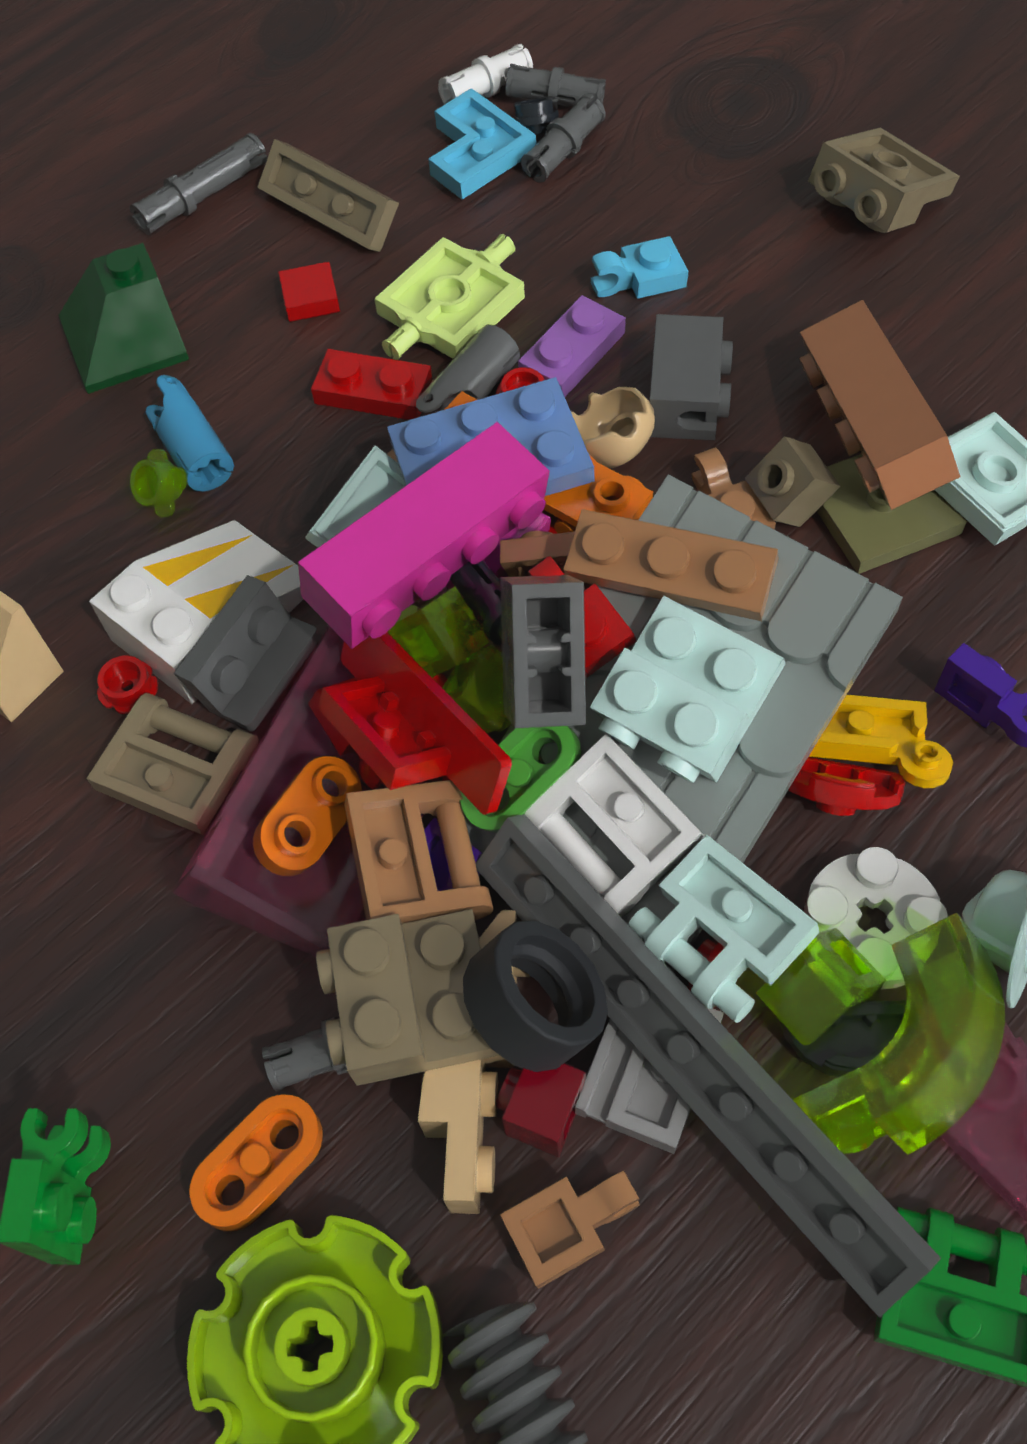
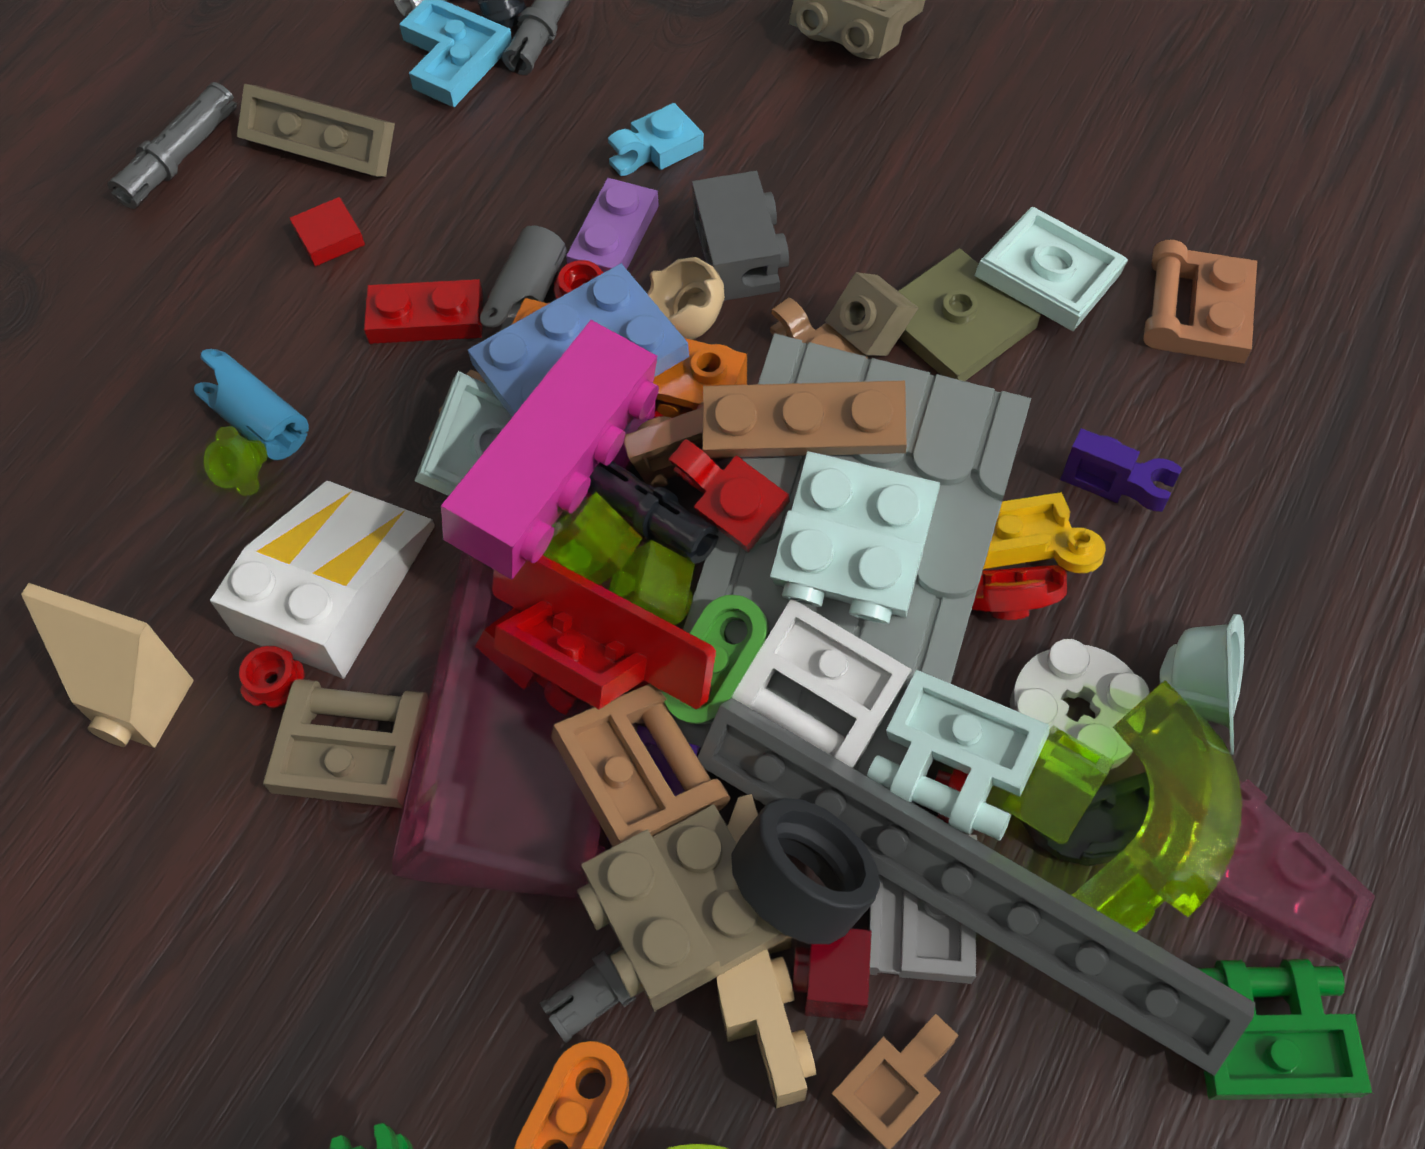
camera: 20 degrees left, 0 degrees up
(120, 321) = (136, 303): dark green slope -> none
(247, 655) = (394, 615): dark grey bracket -> none
(309, 811) = (511, 752): orange plate -> none
(449, 297) = (475, 207): yellowish green plate -> none
(543, 650) = (713, 532): dark grey brick -> none
(878, 406) = (930, 223): nougat brick -> none

